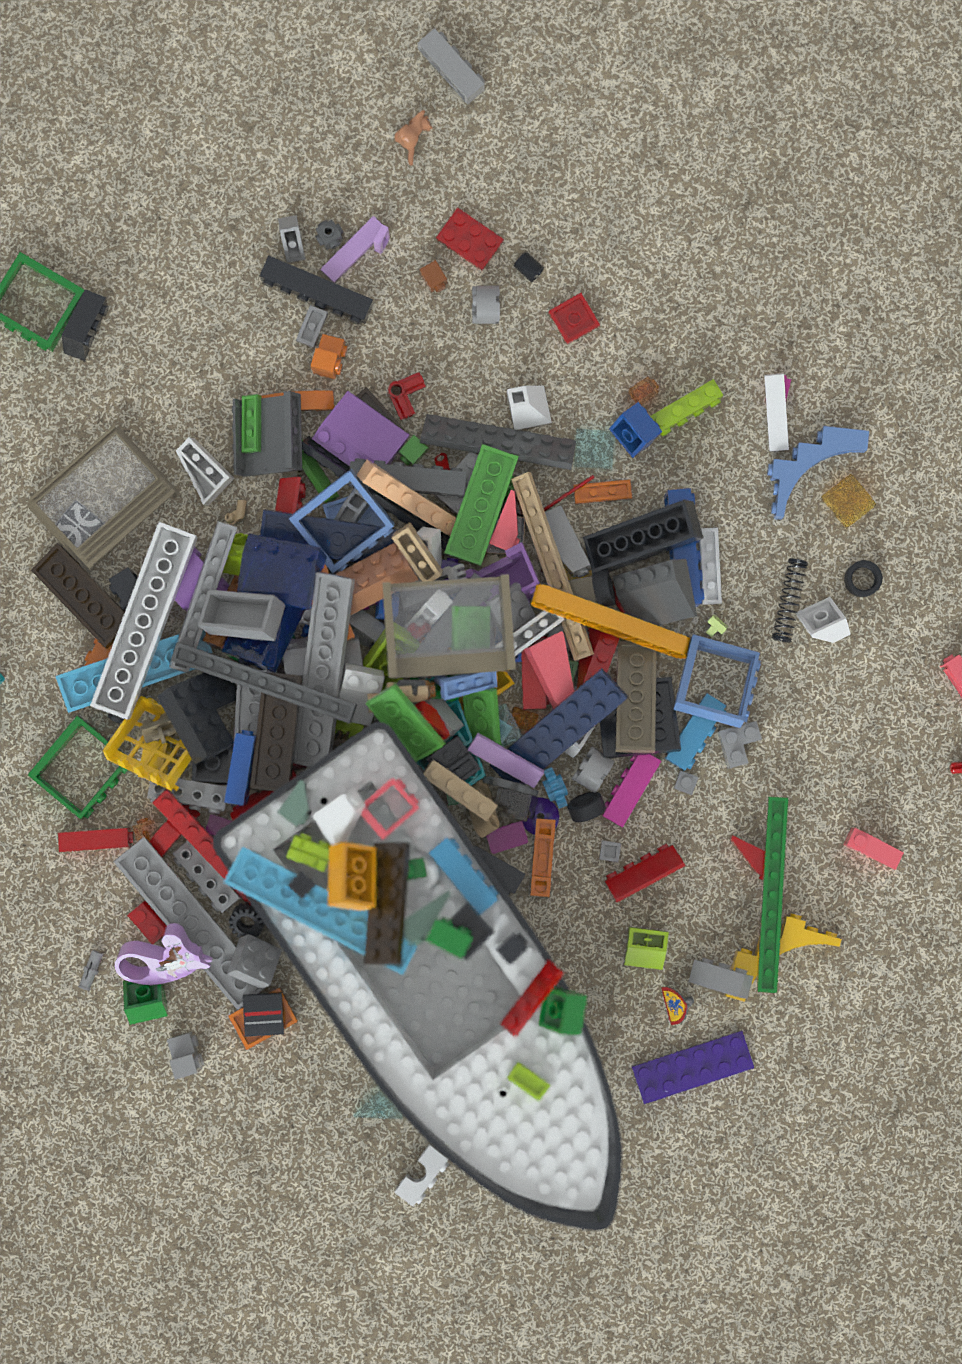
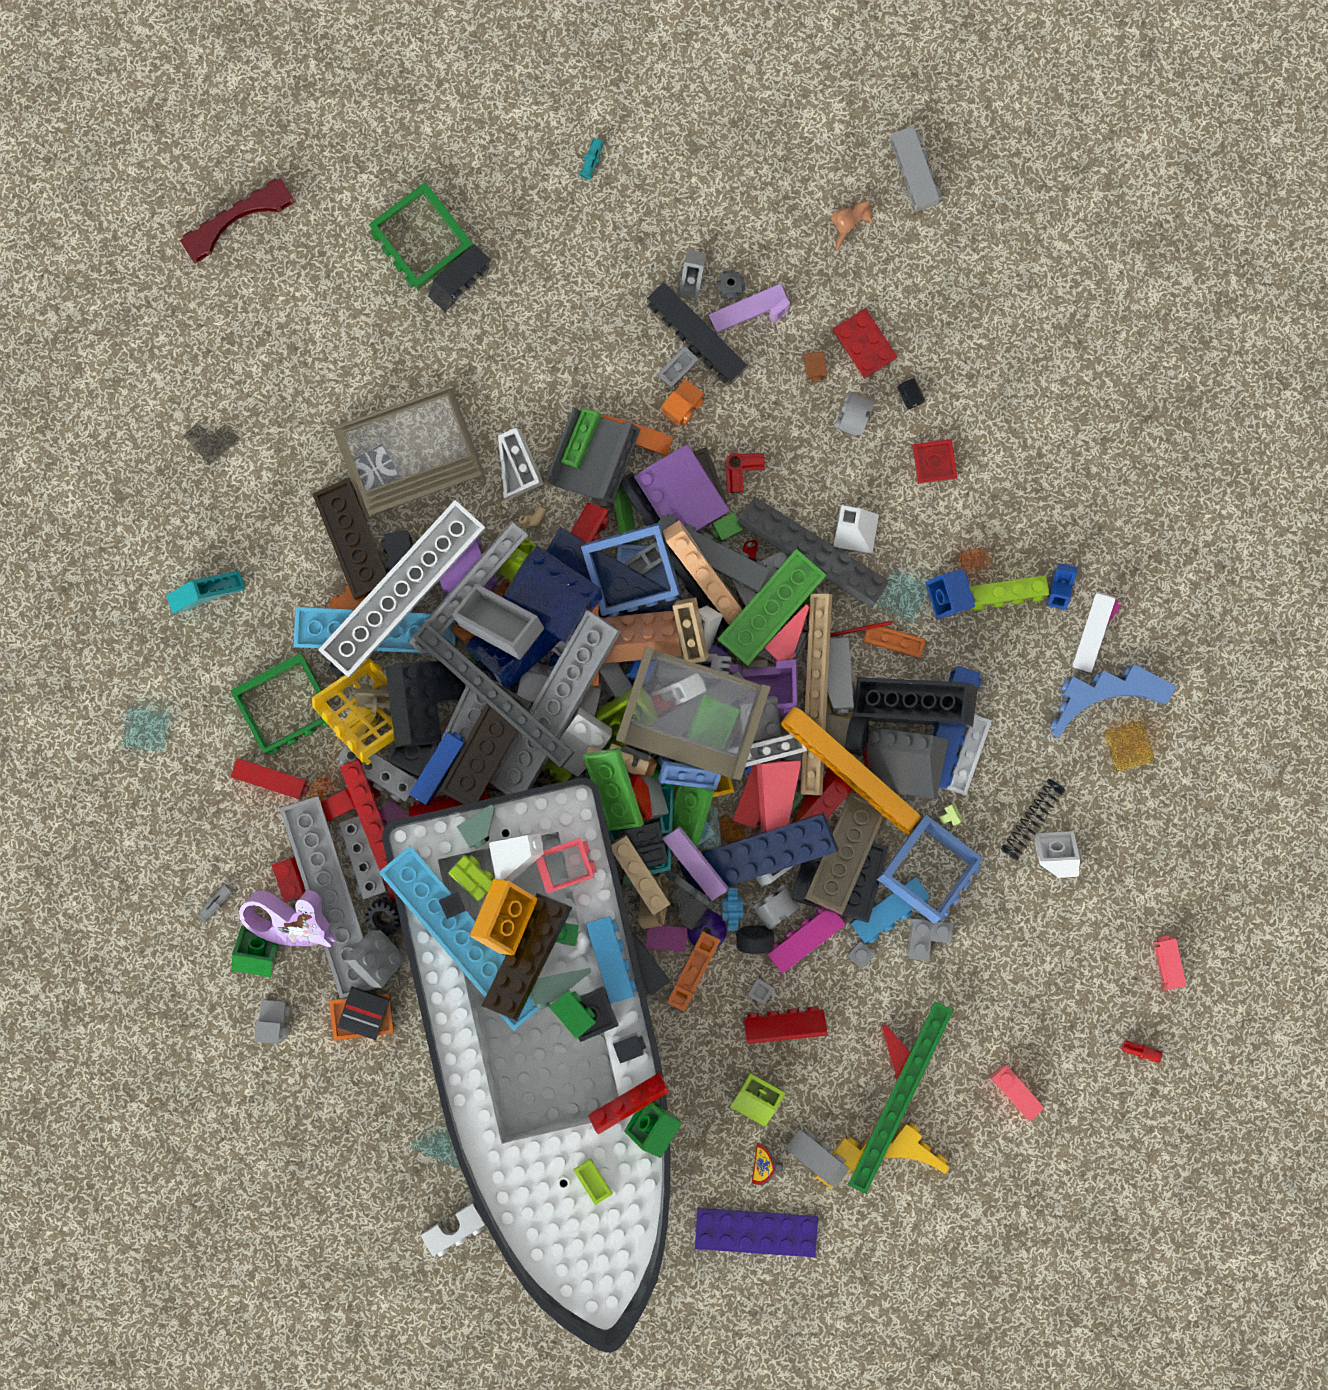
camera: 15 degrees right, 0 degrees up
(160, 172) = (591, 158): none -> teal pin
(731, 383) = (1061, 586): none -> blue brick
(863, 564) = (1127, 829): black tyre -> none

